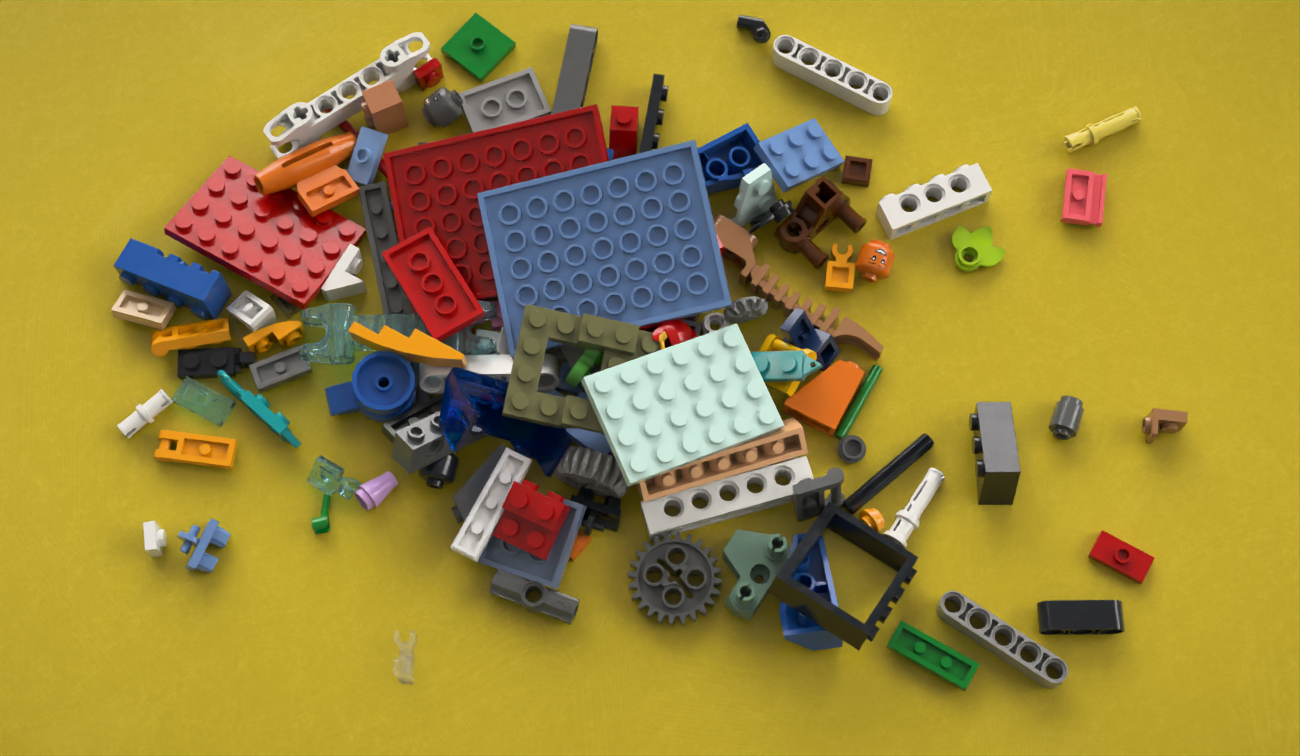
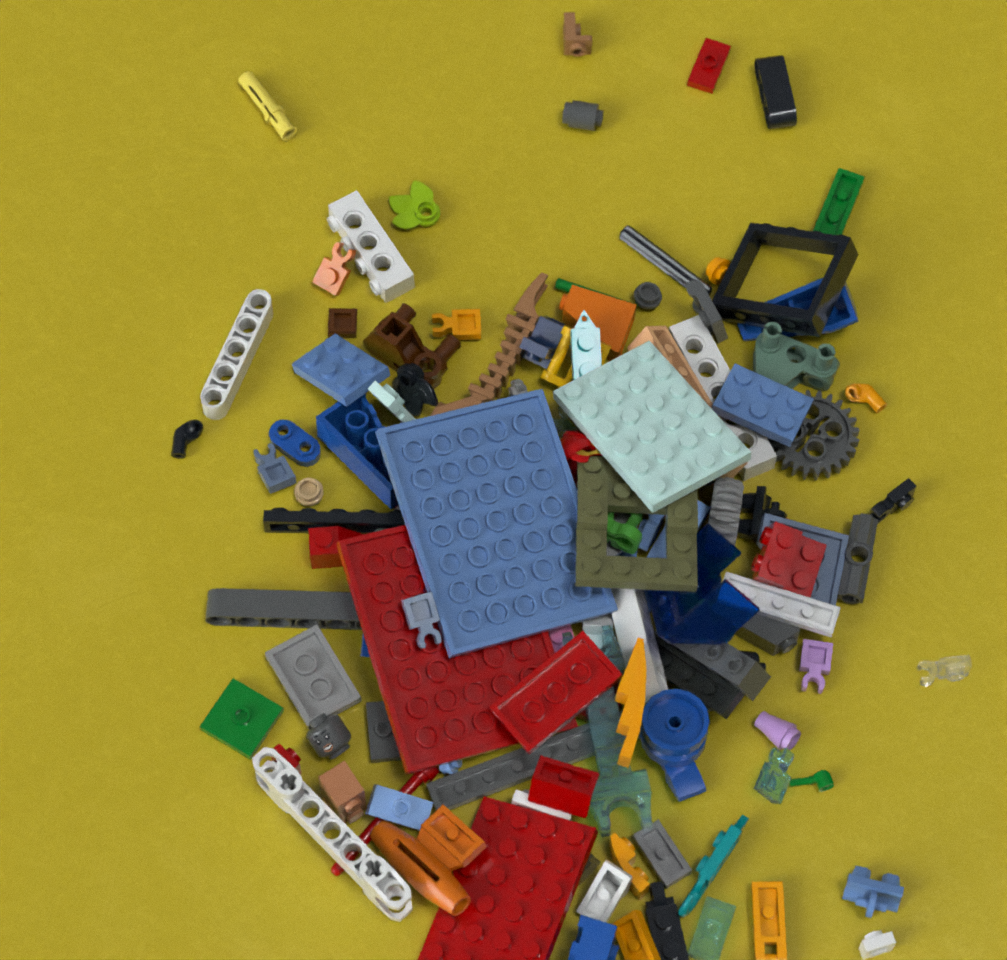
camera: 100 degrees left, 5 degrees down
(348, 280) = (562, 786): none -> red panel
(437, 537) = (815, 660): none -> lavender plate
(517, 170) = (421, 613): none -> sand blue plate
(592, 651) = (897, 499): none -> black plate
(685, 122) = (308, 492): none -> tan plate
(703, 526) = (762, 405): none -> medium blue plate
(708, 96) = (274, 471): none -> sand blue plate
(715, 642) = (865, 394): none -> light orange arm
(737, 114) = (293, 441): none -> blue plate
(875, 261) = (446, 292): orange head -> none
(908, 519) = (709, 244): white pin -> none
(910, 164) = (332, 272): none -> plate
(995, 453) = (630, 169): wedge -> none
(1016, 640) = (809, 163): light grey beam -> none
(1083, 197) = (346, 116): coral plate -> none

